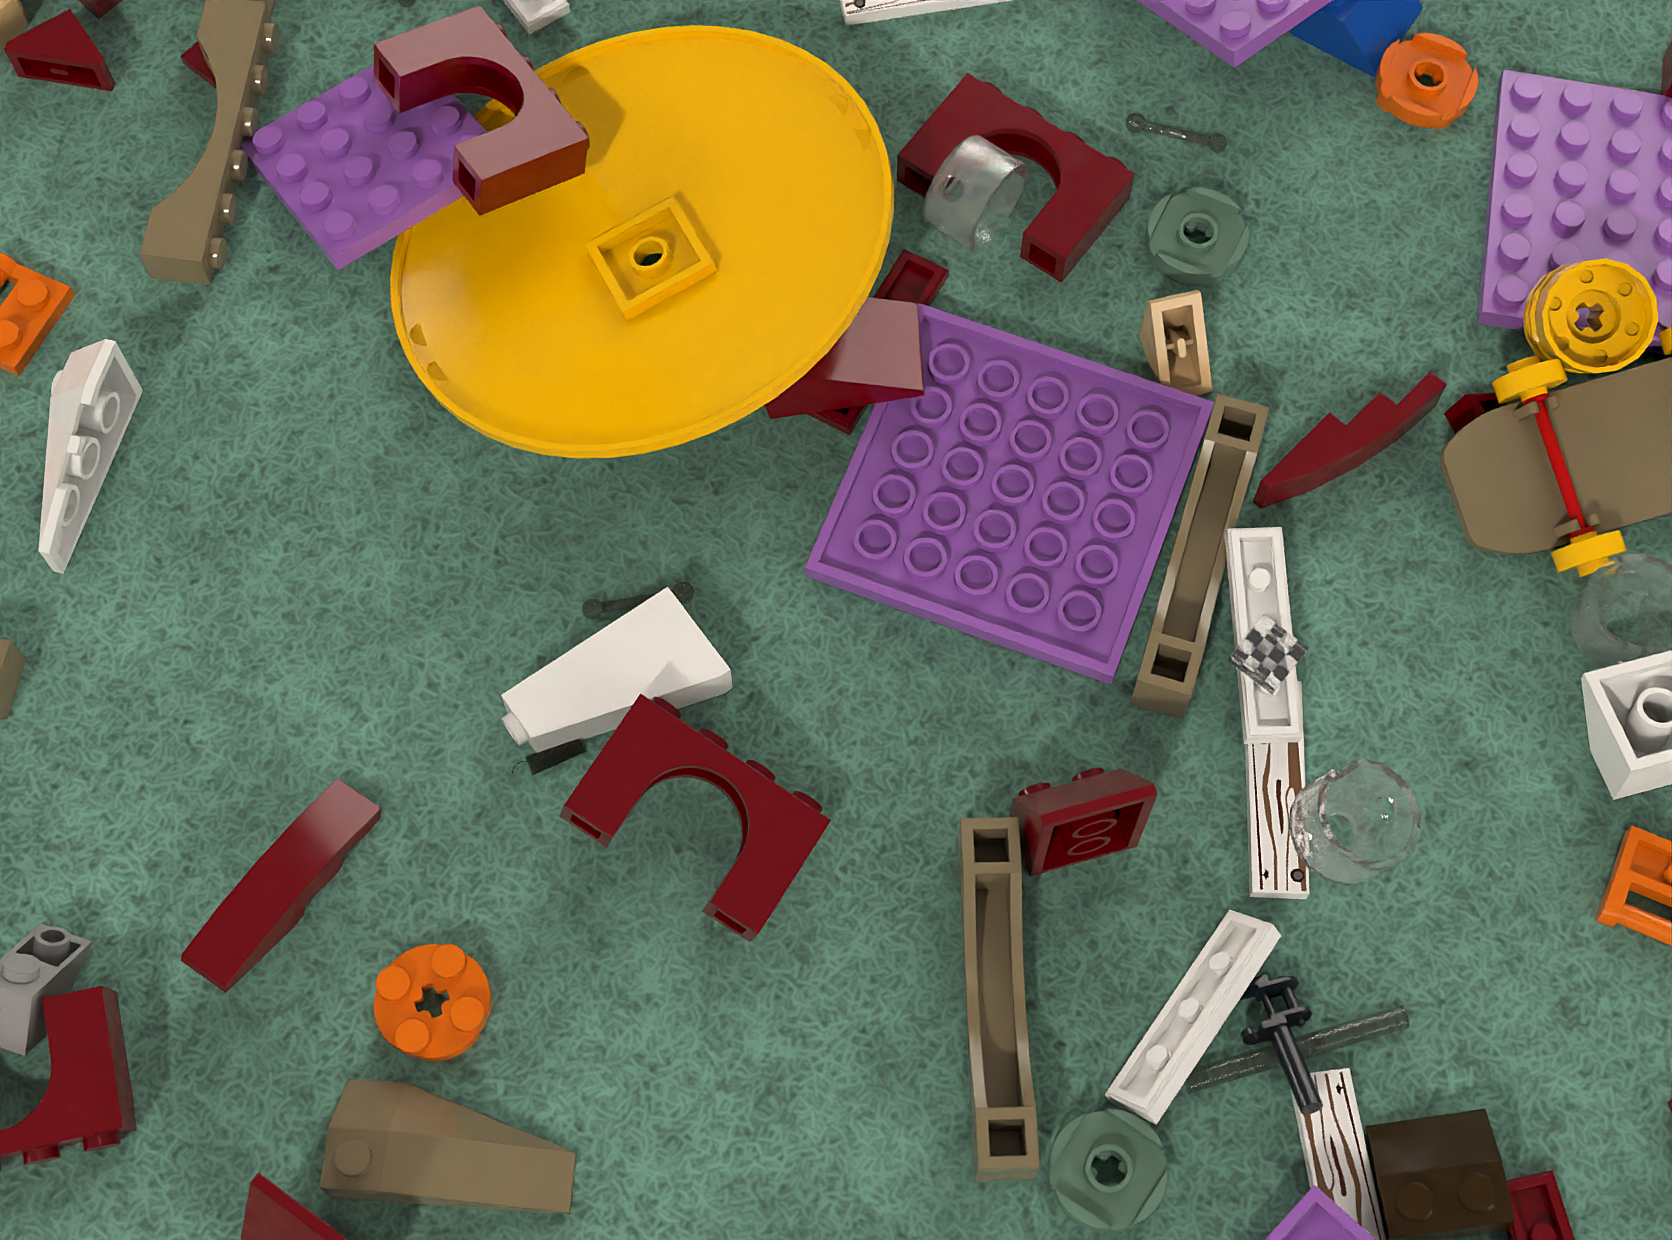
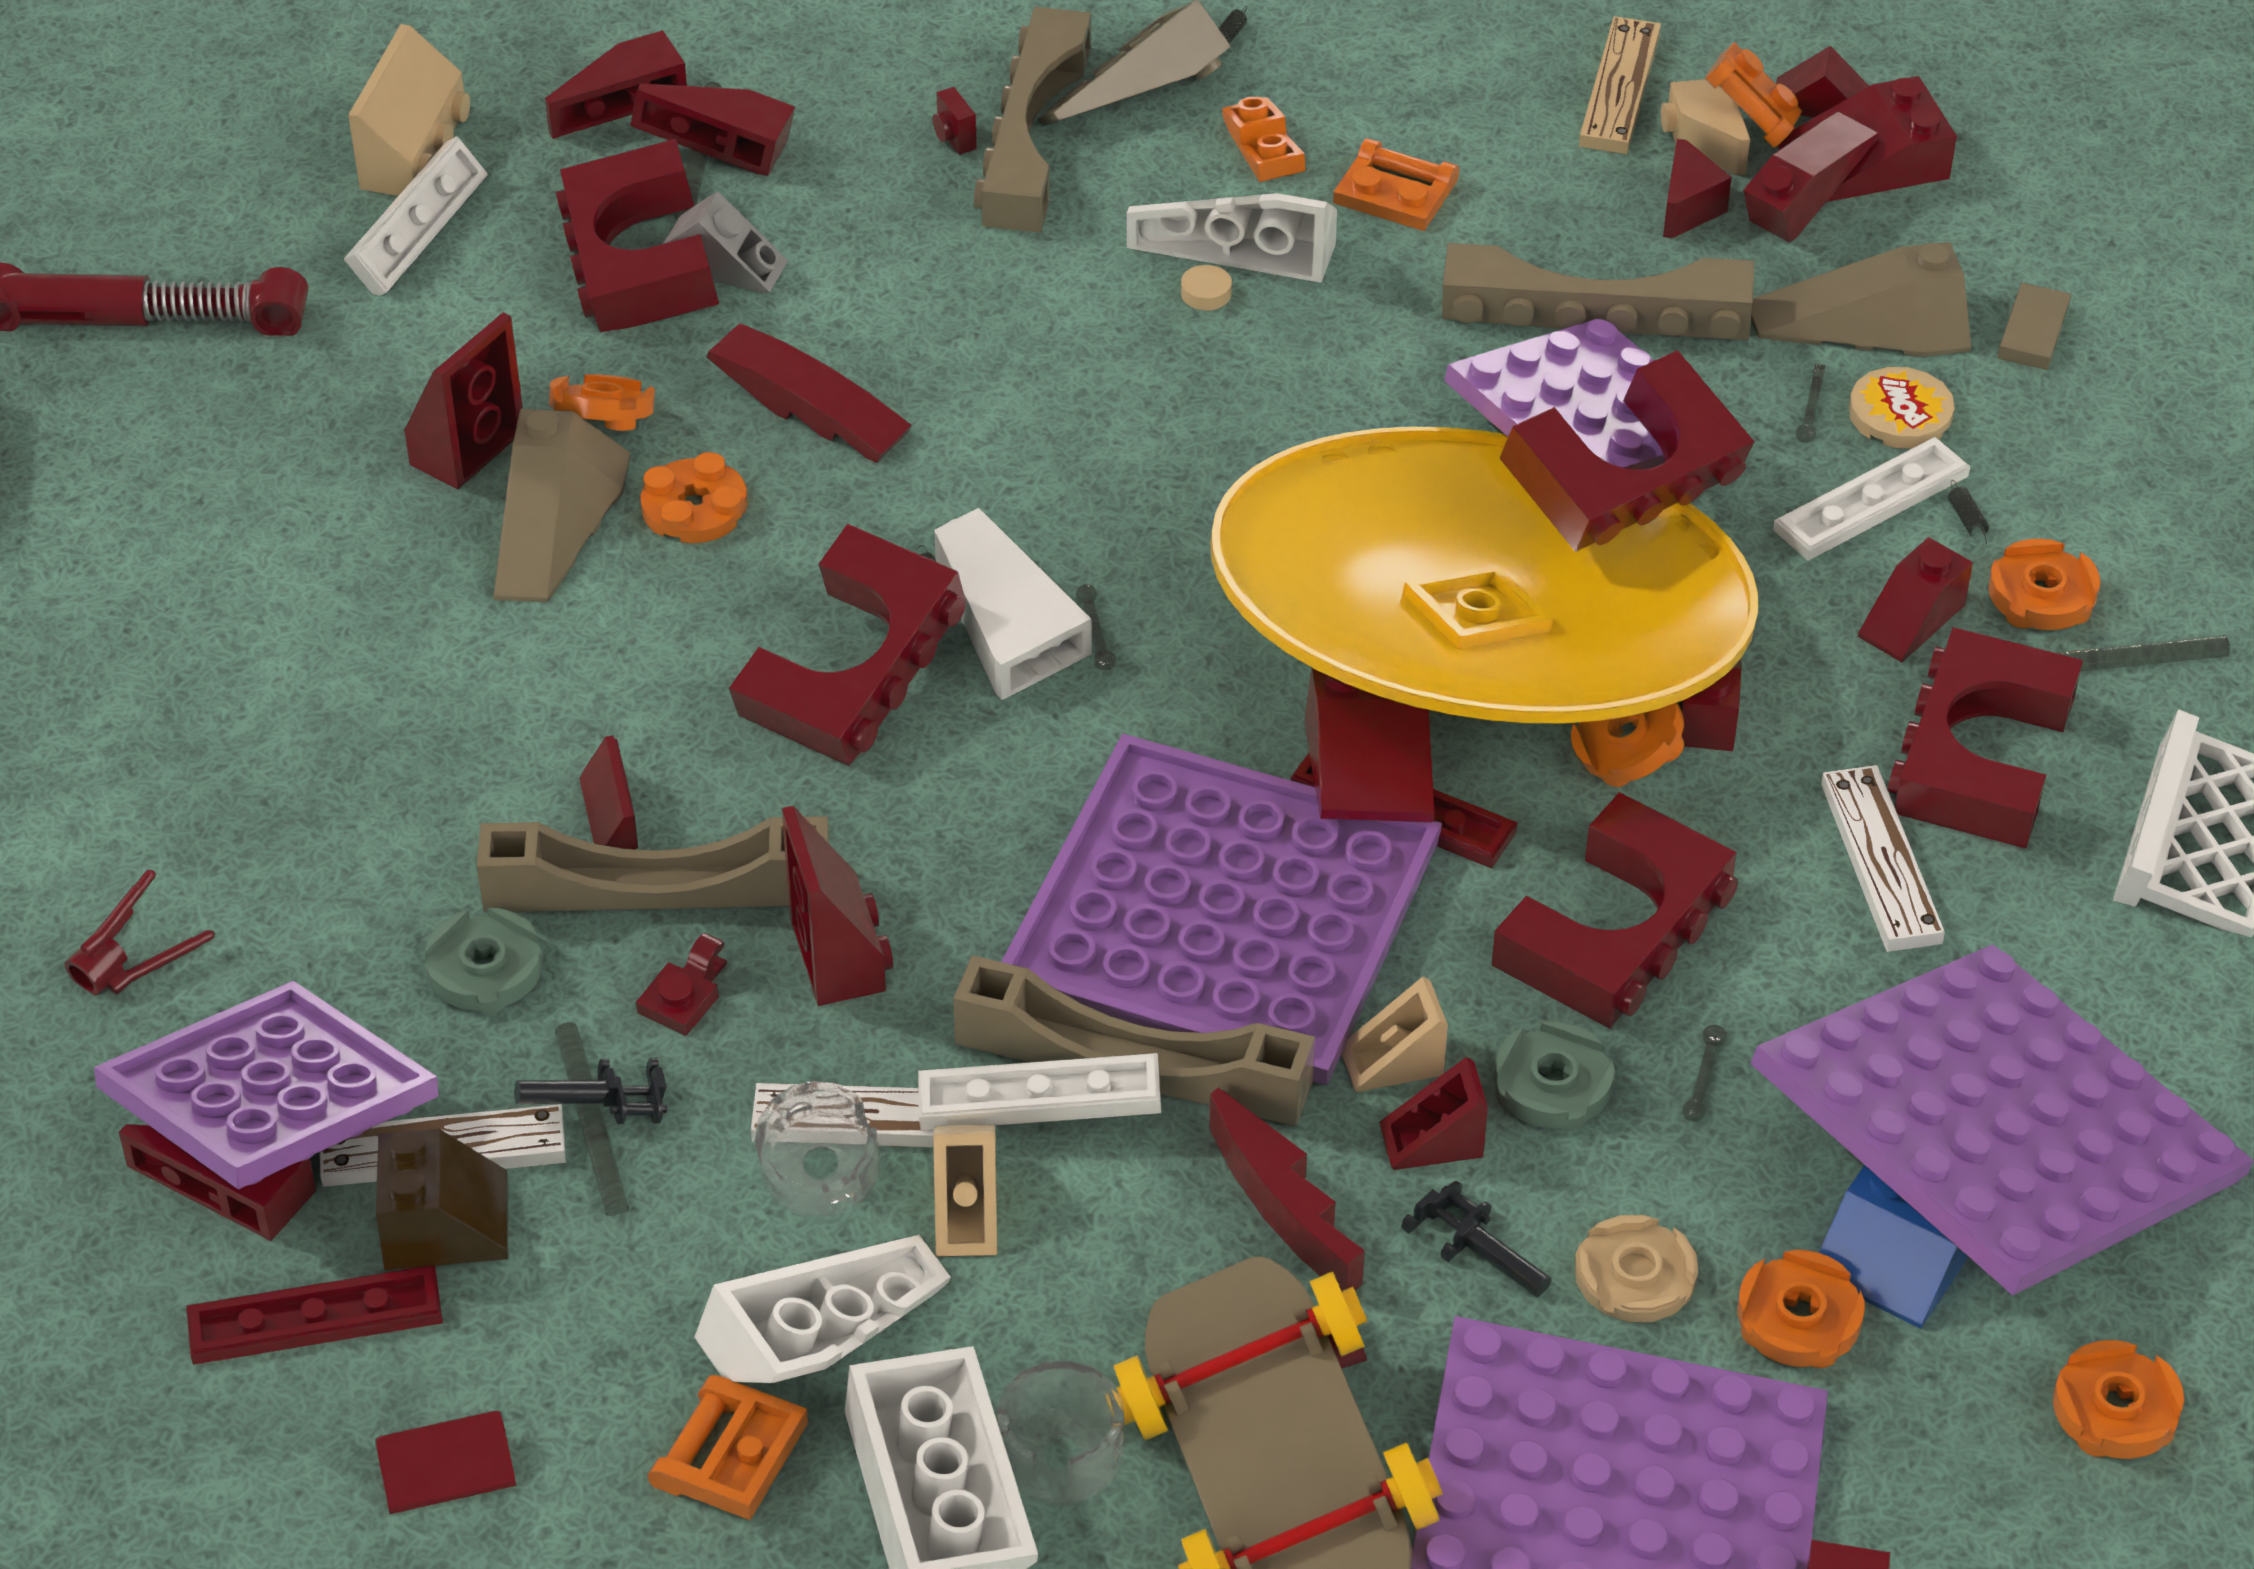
camera: 90 degrees right, 20 degrees down
(144, 494) = (1206, 287): none -> tan tile
(303, 1126) = (604, 398): none -> orange plate
(888, 1058) = (609, 798): none -> dark red slope
(981, 195) = (1588, 855): clear piece -> none
(1137, 972) = (685, 994): none -> dark red plate
(1193, 1016) = (631, 1027): white tile -> none
(1254, 318) = (1439, 1122): none -> dark red slope
(1268, 654) = (1006, 1077): clear tile -> none
(1363, 698) = (965, 1190): none -> tan slope
(1369, 307) = (1475, 1237): none -> black piece
(1380, 205) = (1636, 1286): none -> tan tile
(1545, 833) = (814, 1311): none -> white wedge
(1619, 321) = (1419, 1366): yellow wheel -> none

